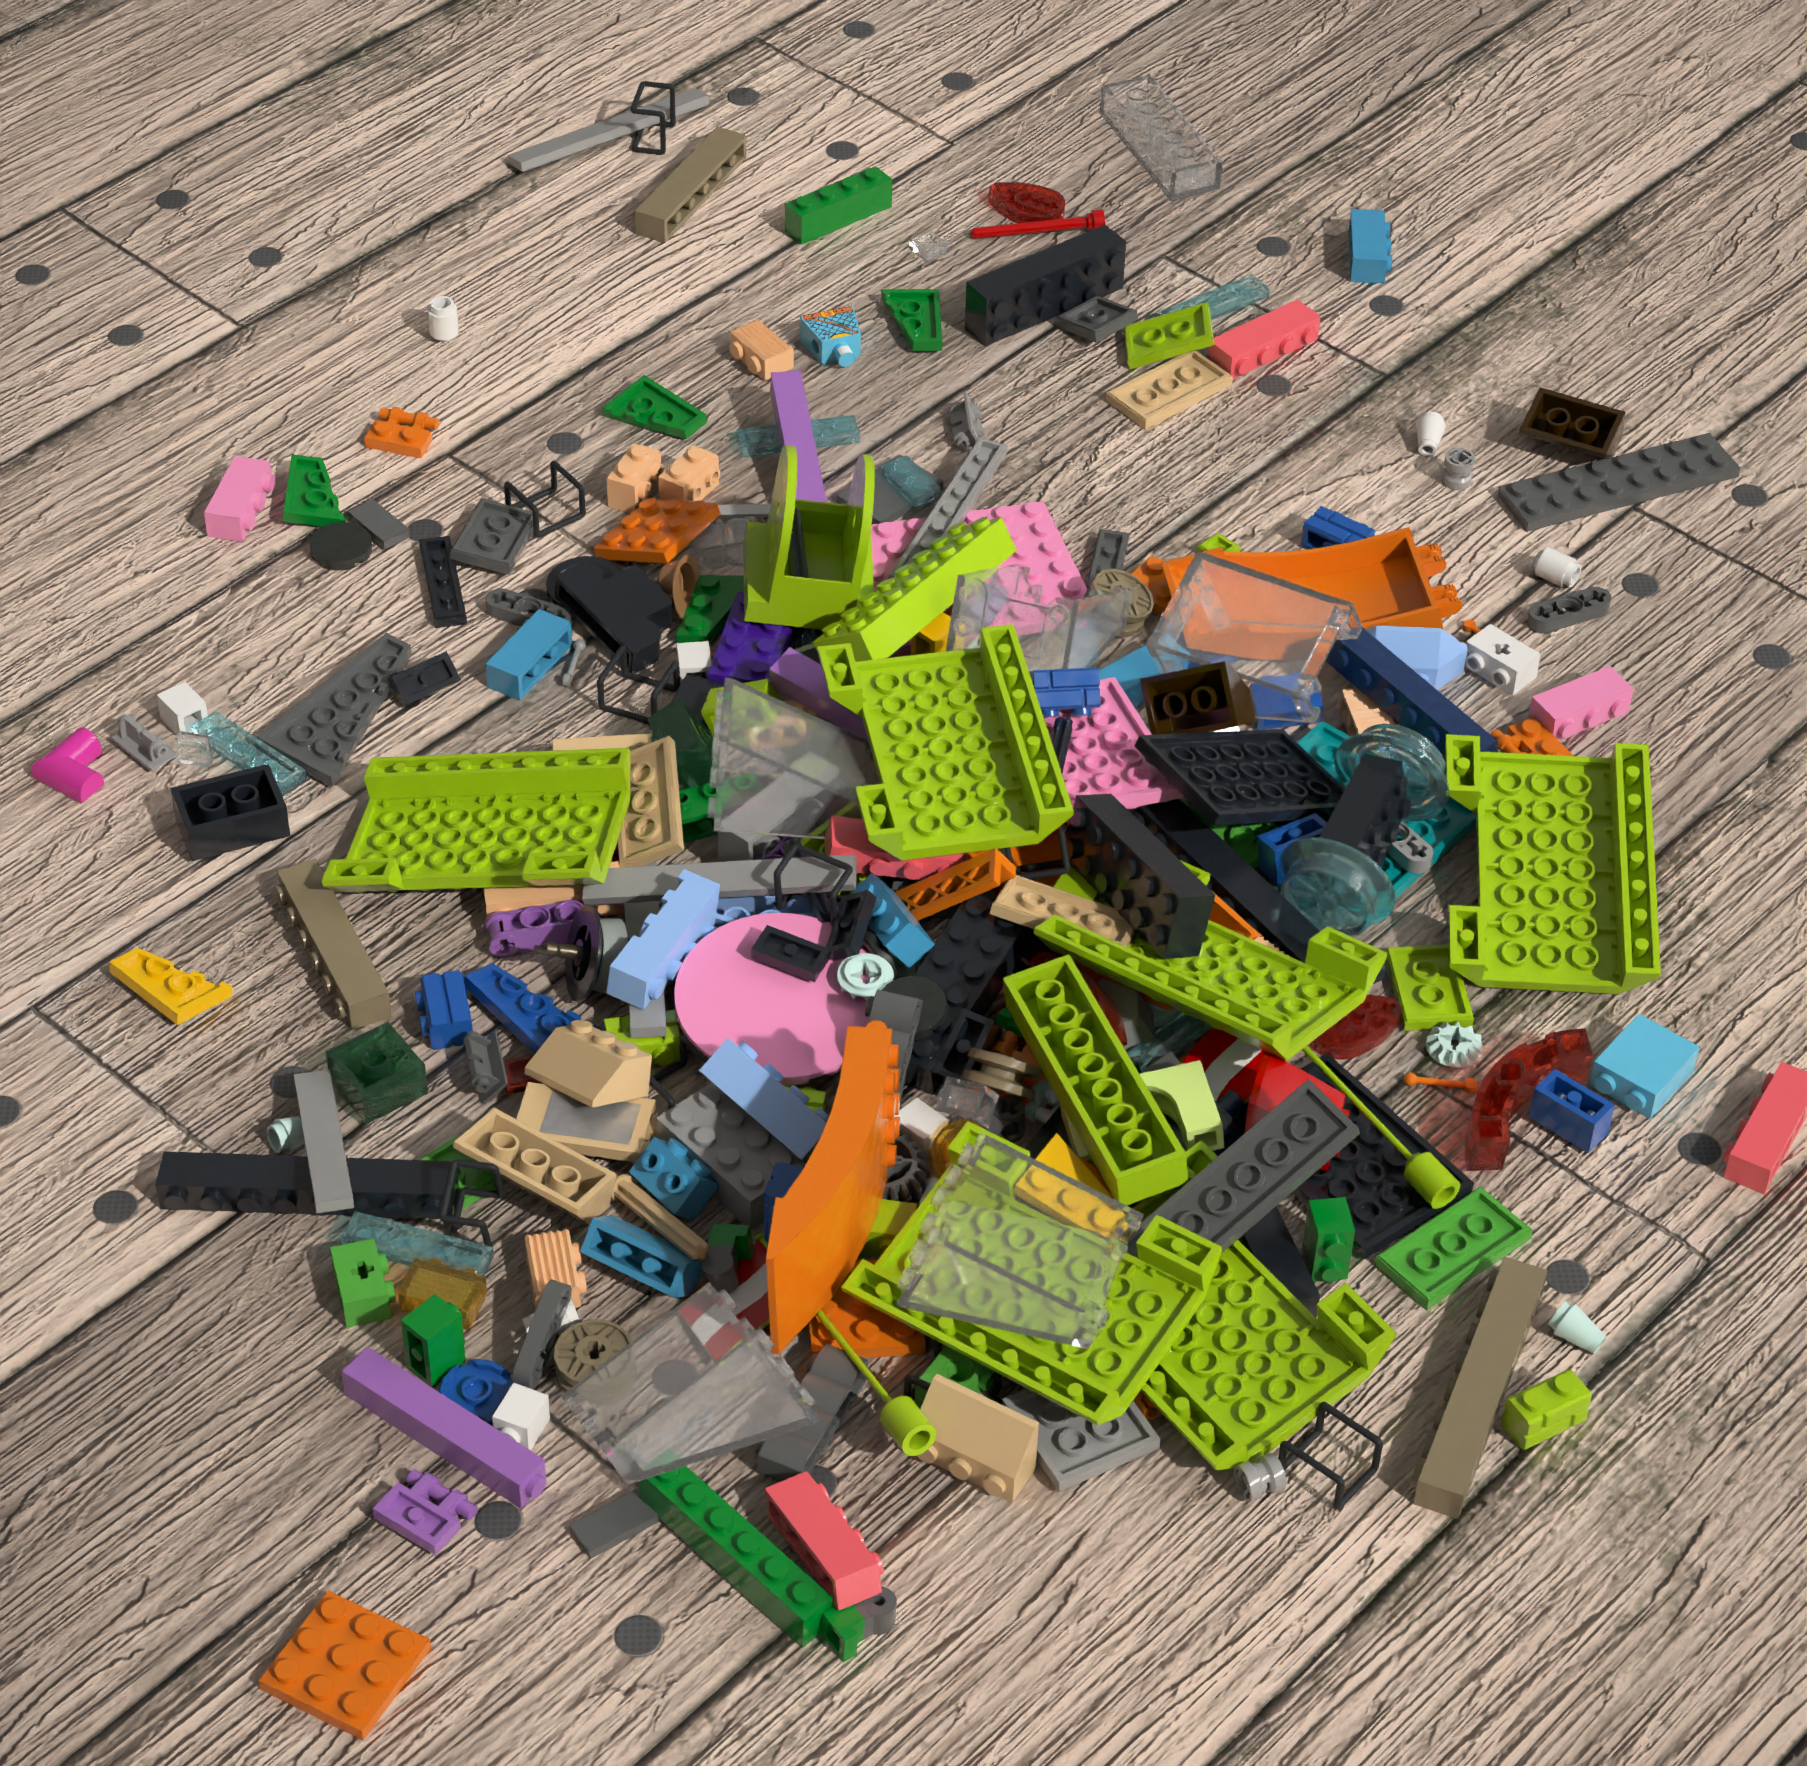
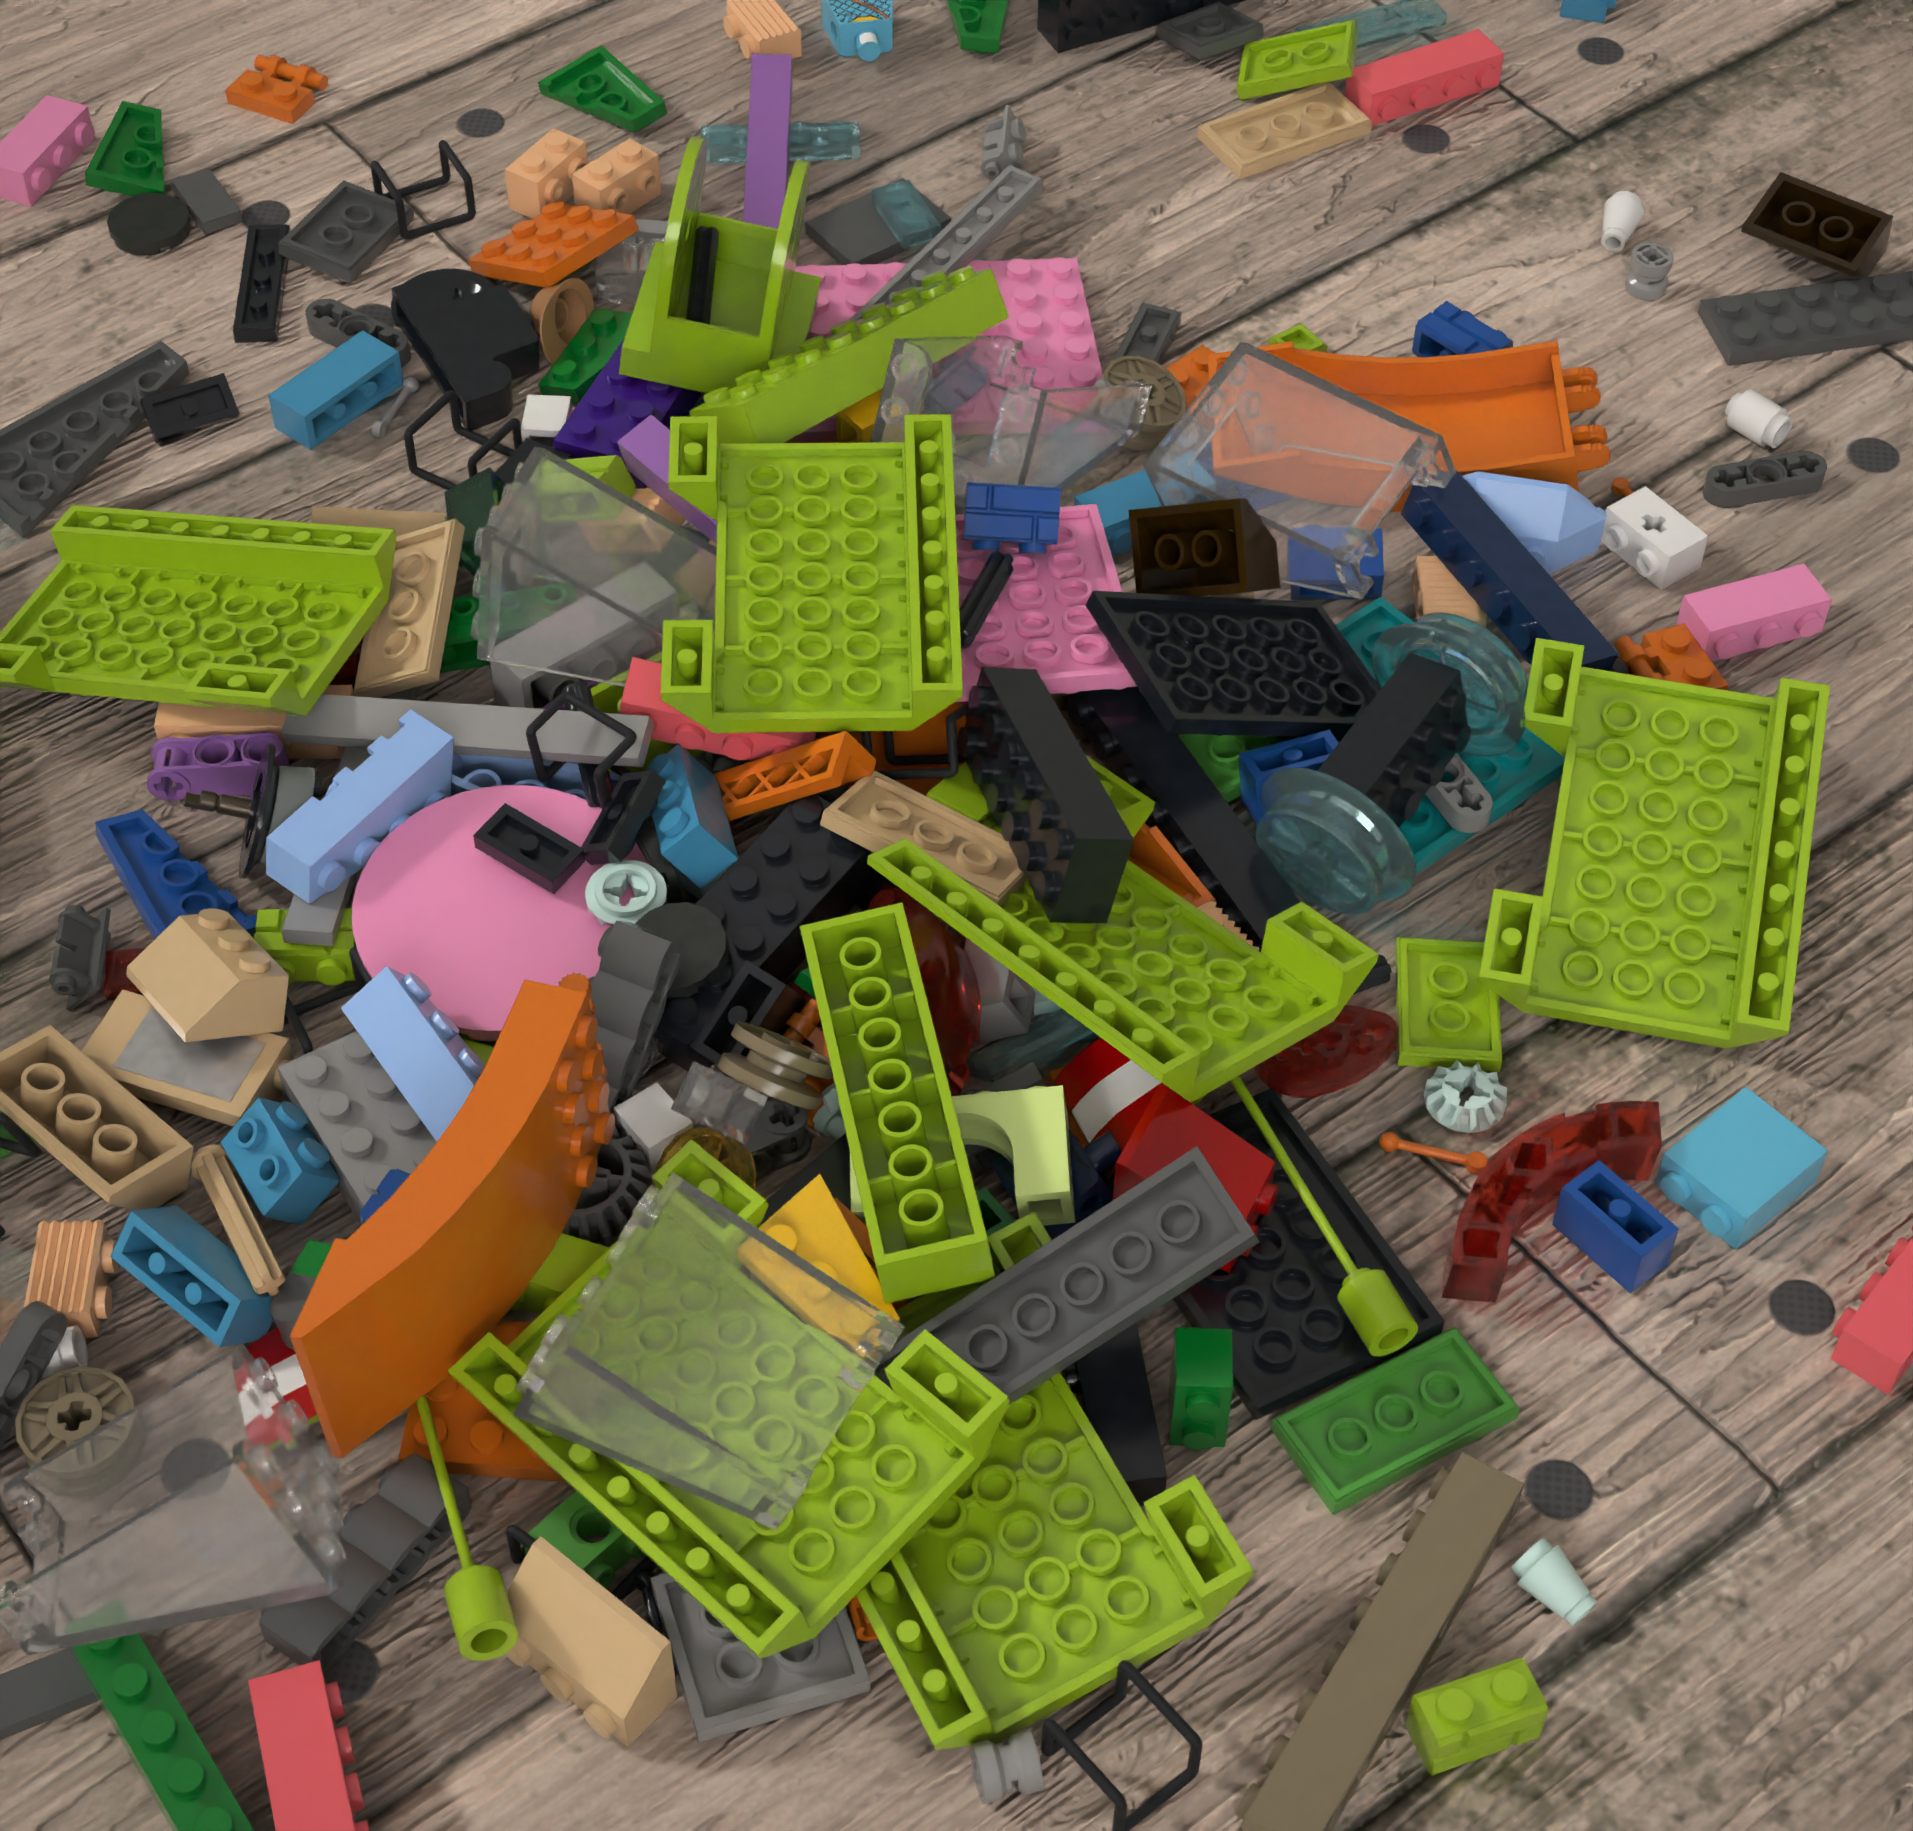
camera: 10 degrees right, 5 degrees up
(445, 1008) = (56, 866): blue brick -> none

